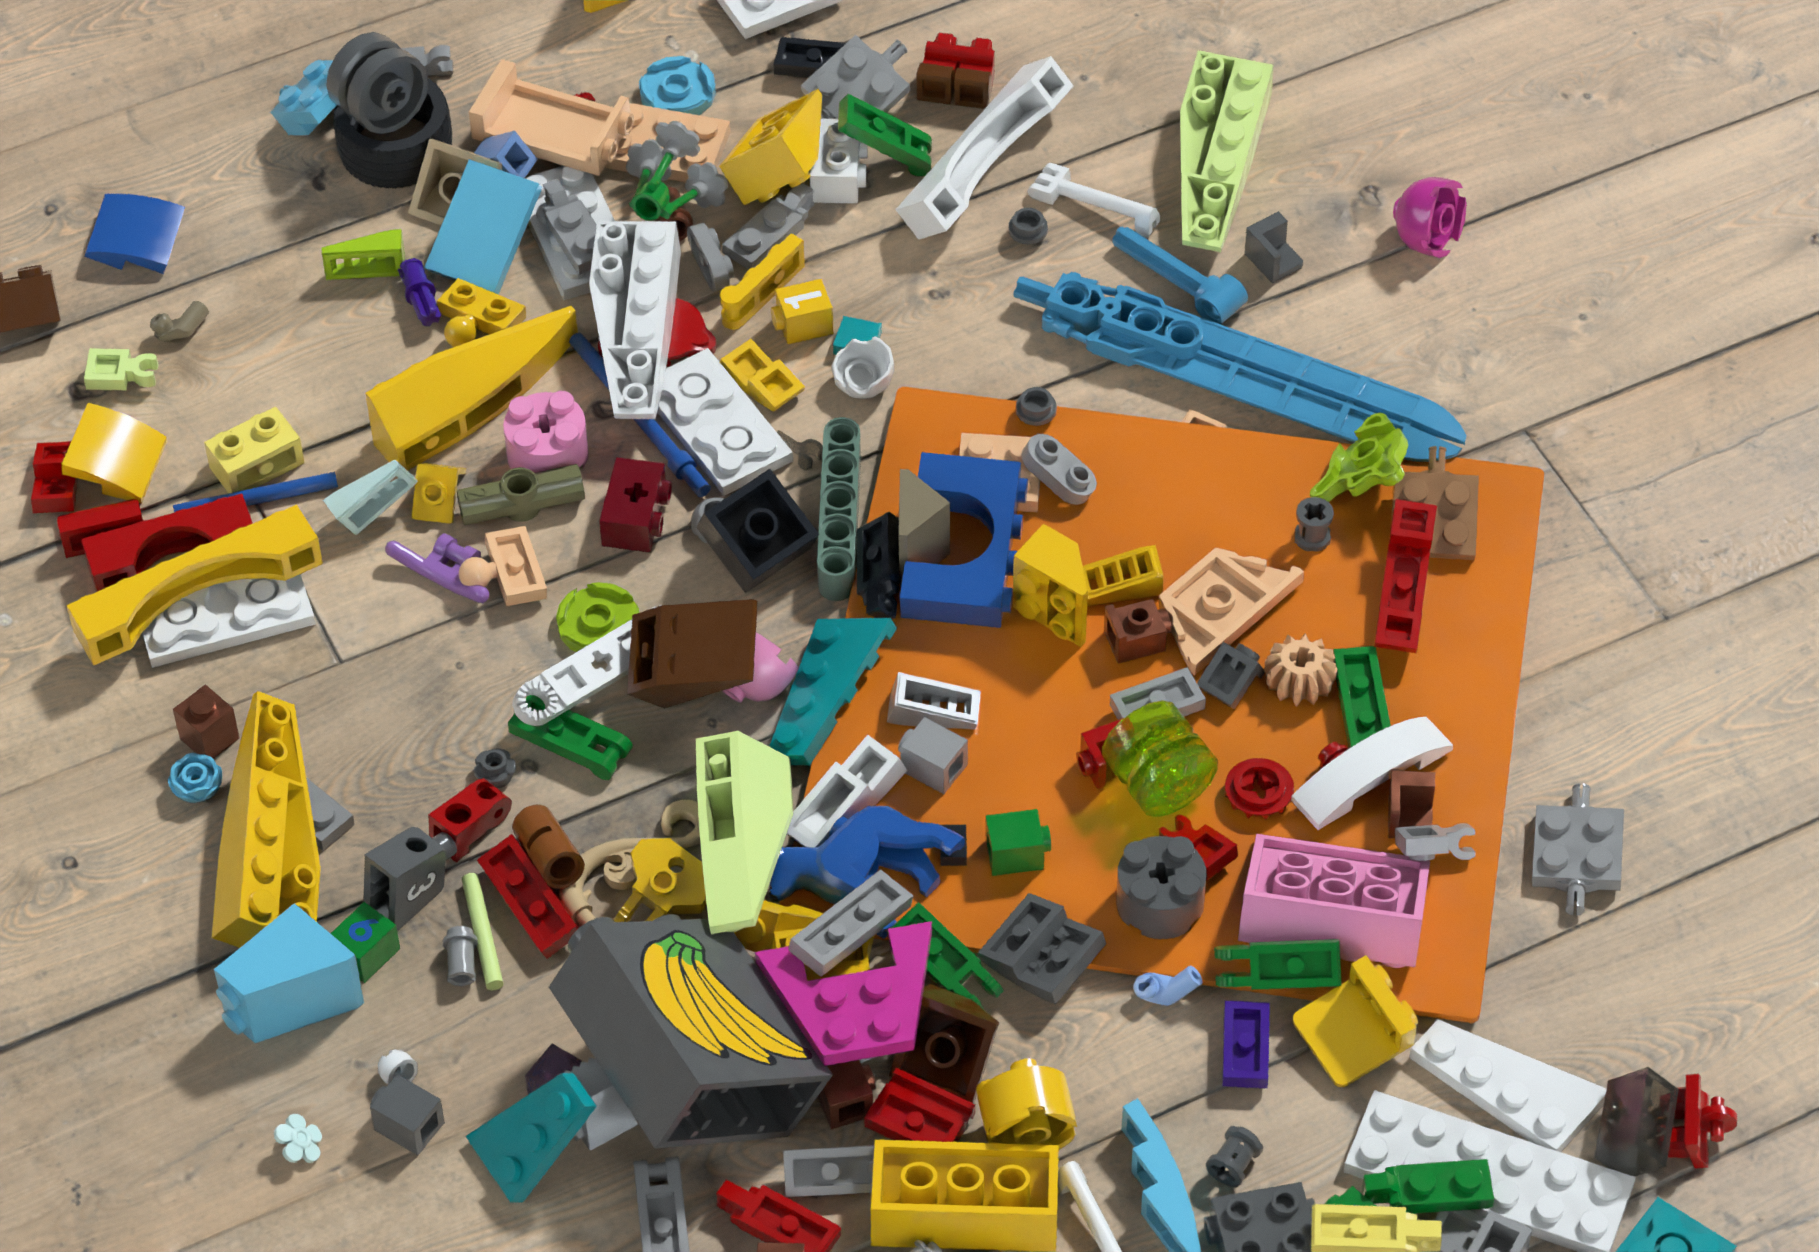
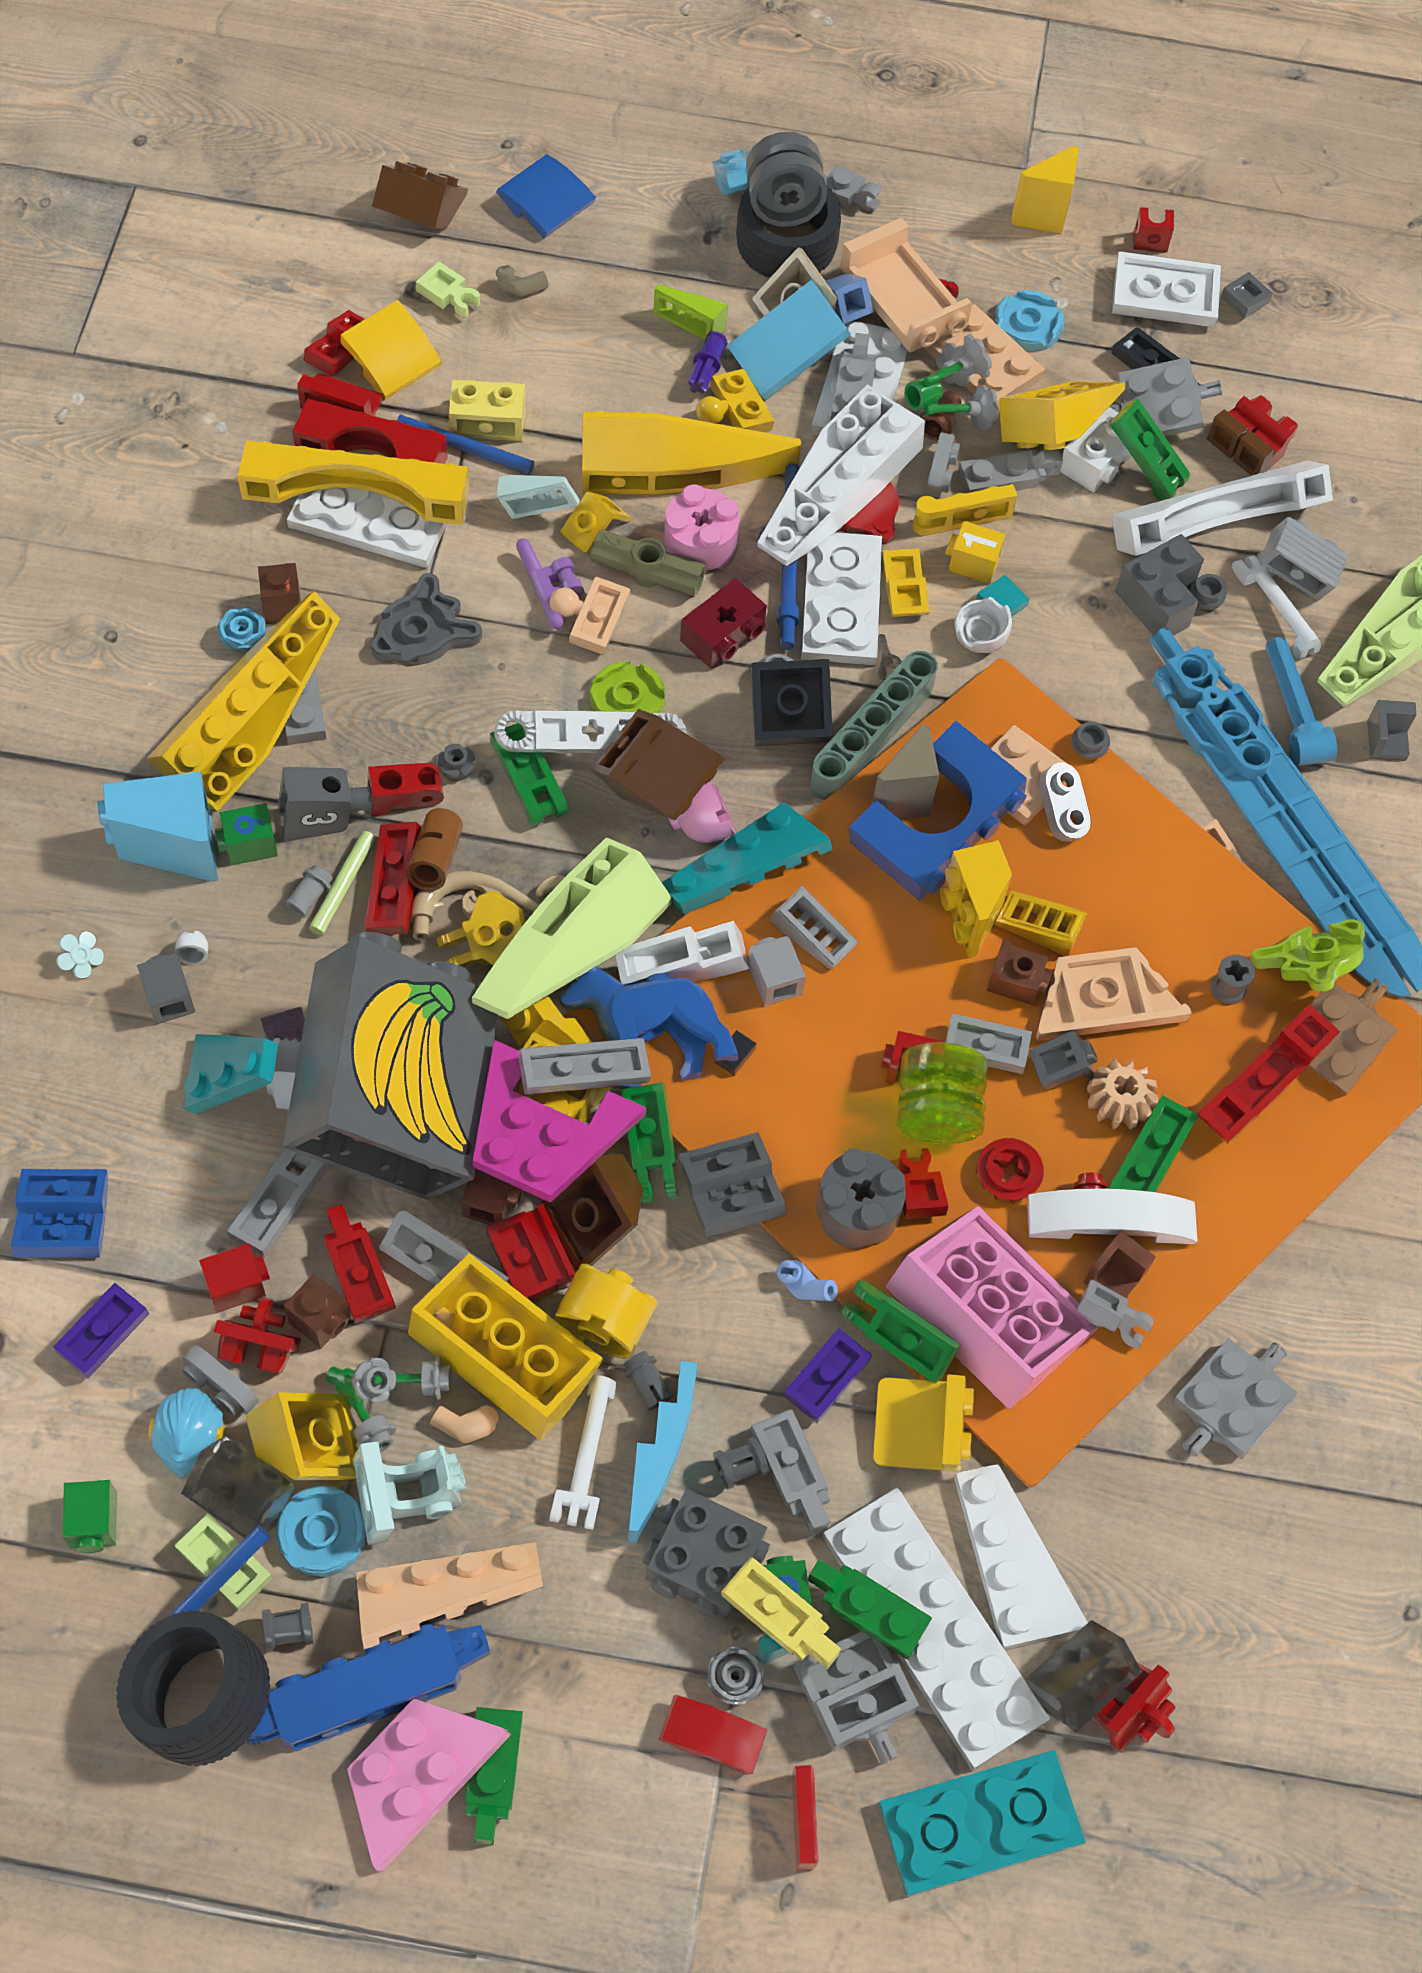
camera: 30 degrees right, 10 degrees up
(358, 675) = (422, 626): none -> dark grey tile
(879, 565) = (855, 794): black hinge -> none
(985, 248) = (1158, 585): none -> dark grey brick
(1016, 842) = (780, 1084): green brick -> none
(1088, 149) = (1303, 558): none -> light grey brick
(1102, 1146) = (646, 1377): none -> dark grey pin
(1283, 1132) = (794, 1469): none -> light grey hinge

